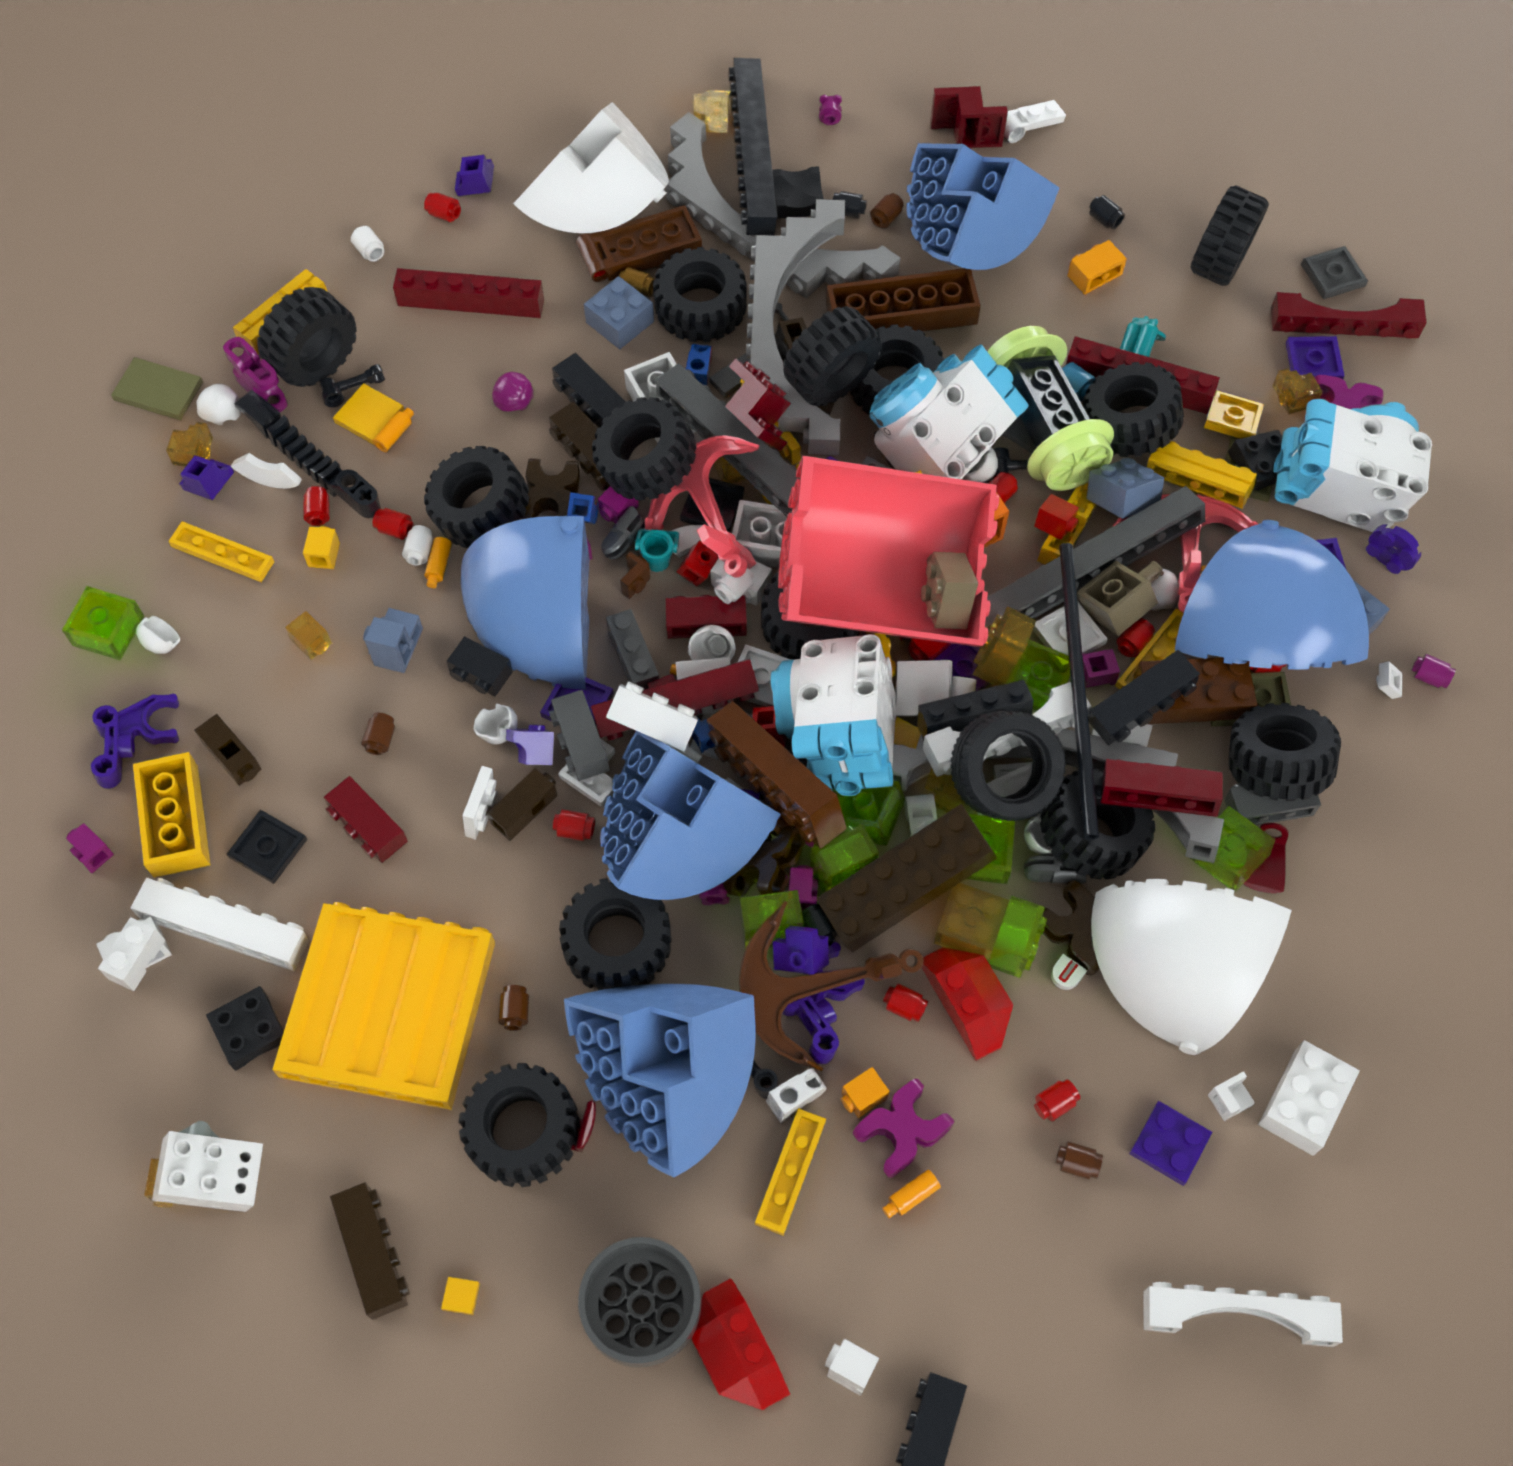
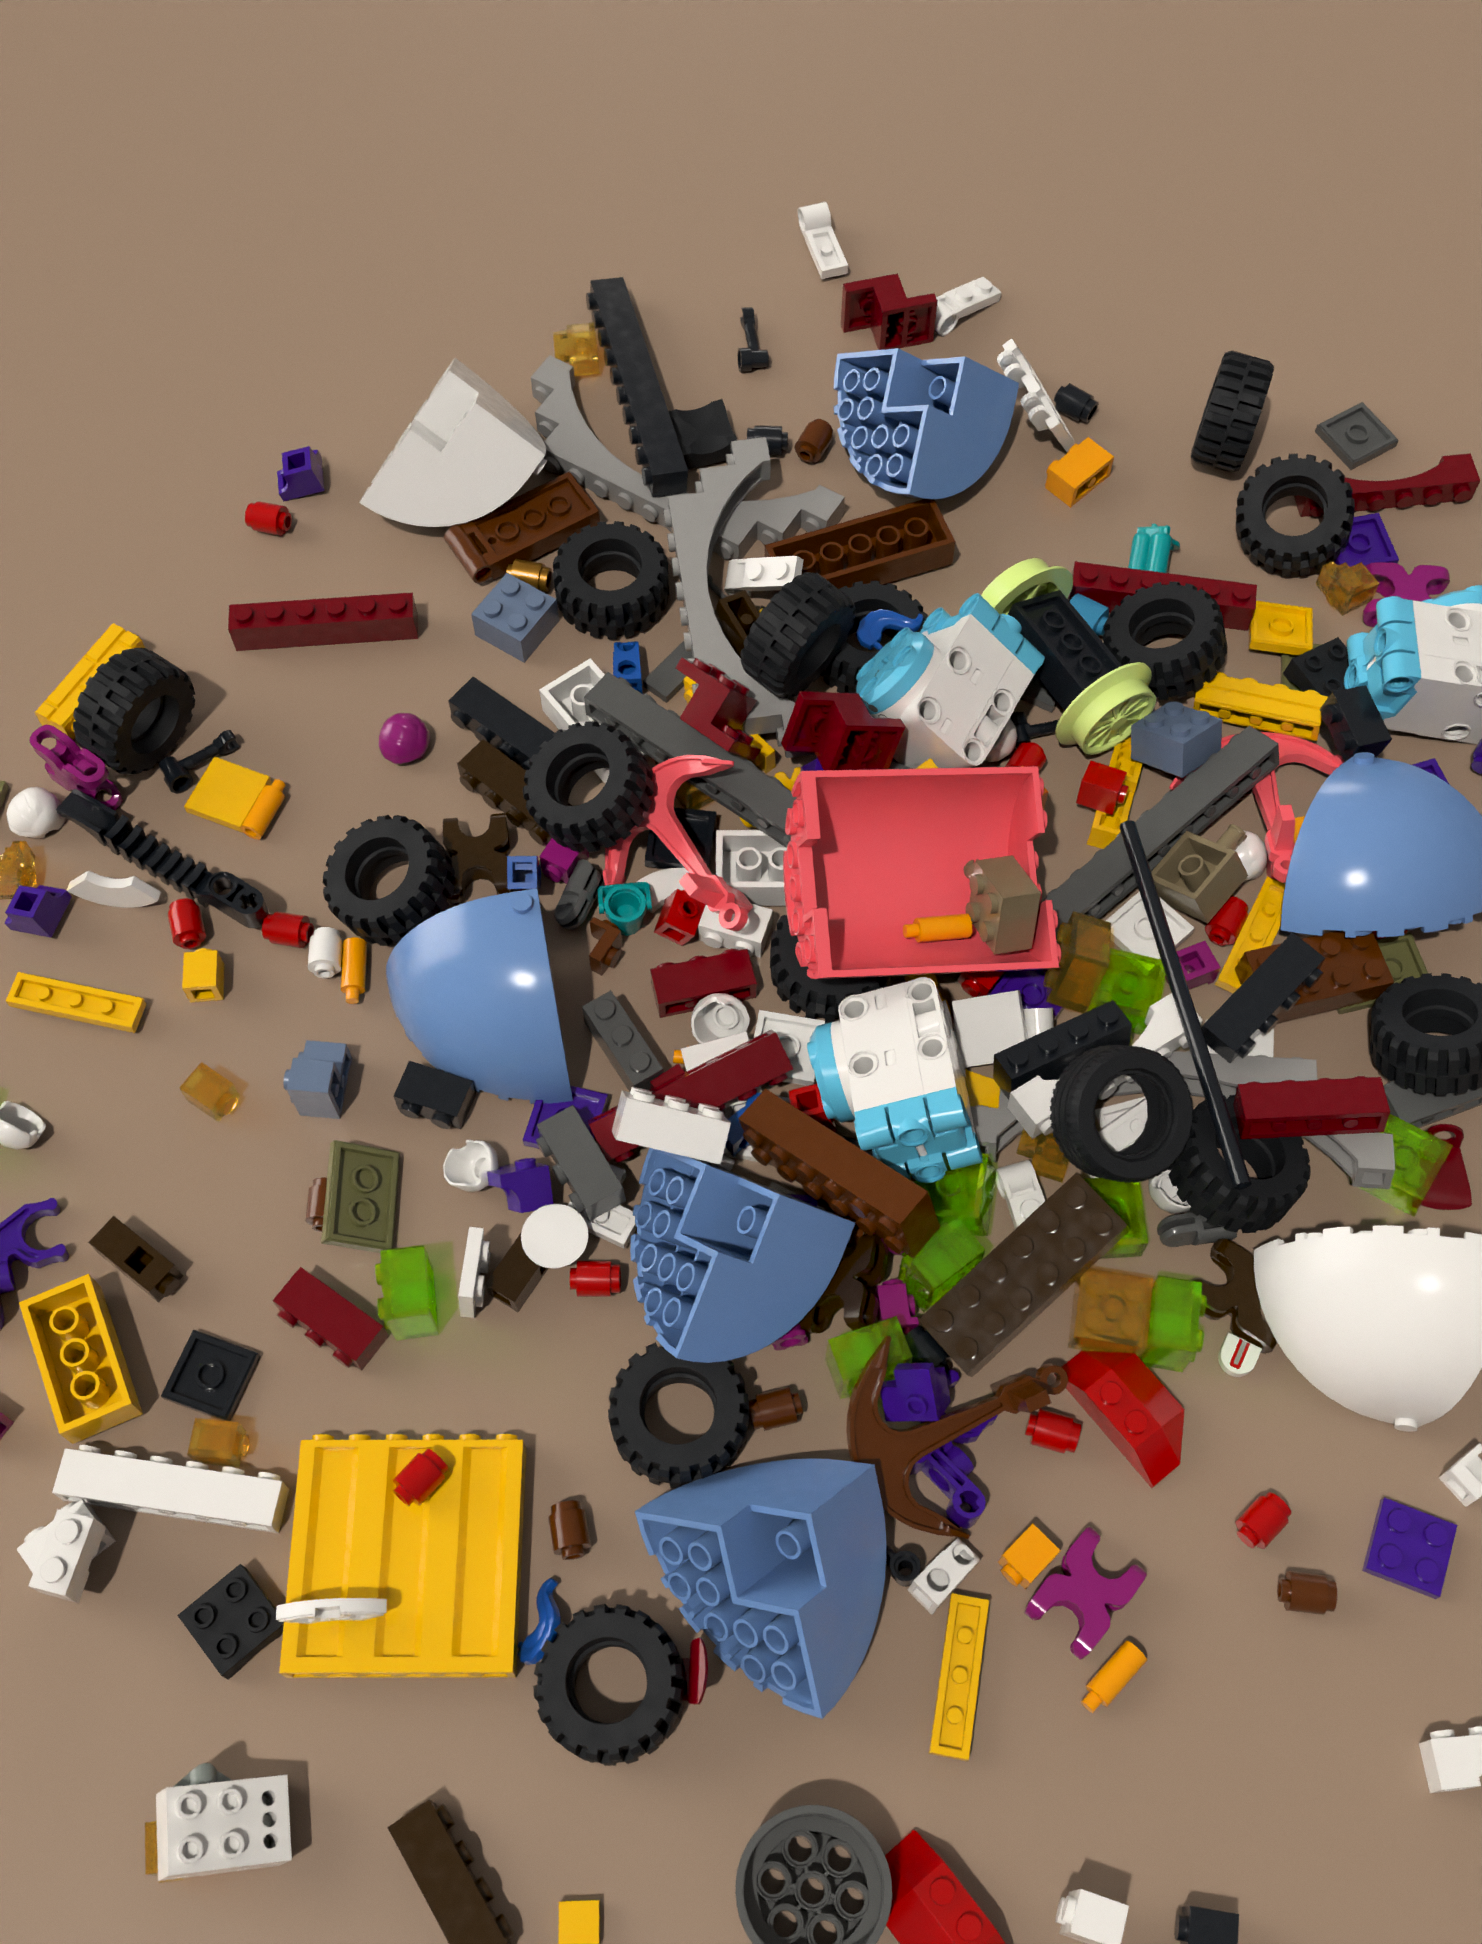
camera: 10 degrees left, 0 degrees up
(262, 895) = (218, 1442): none -> clear yellow brick
(319, 1028) = (331, 1610): none -> white tile
(367, 243) = (183, 578): white brick -> none
(406, 733) = (360, 1197): none -> olive tile
(406, 945) = (420, 1478): none -> red brick
(427, 809) = (408, 1293): none -> clear neon green brick
(484, 1066) = (549, 1619): none -> blue piece
(548, 786) = (554, 1236): none -> white sticker
(691, 947) = (775, 1409): none -> reddish brown brick
(731, 589) = (730, 944): white brick -> none
(815, 305) = (761, 573): none -> white plate
(830, 109) = (719, 327): magenta brick -> none
(851, 136) = (752, 356): none -> black brick
(851, 435) = (841, 732): none -> dark red bracket
(896, 601) = (939, 928): none -> light orange cylinder
(901, 358) = (876, 622): none -> blue piece
(928, 52) = (821, 240): none -> white plate
(1073, 205) = (1036, 402): none -> white hinge
(1258, 297) = (1292, 478): none -> black tyre
(1271, 496) = (1355, 722): none -> black slope

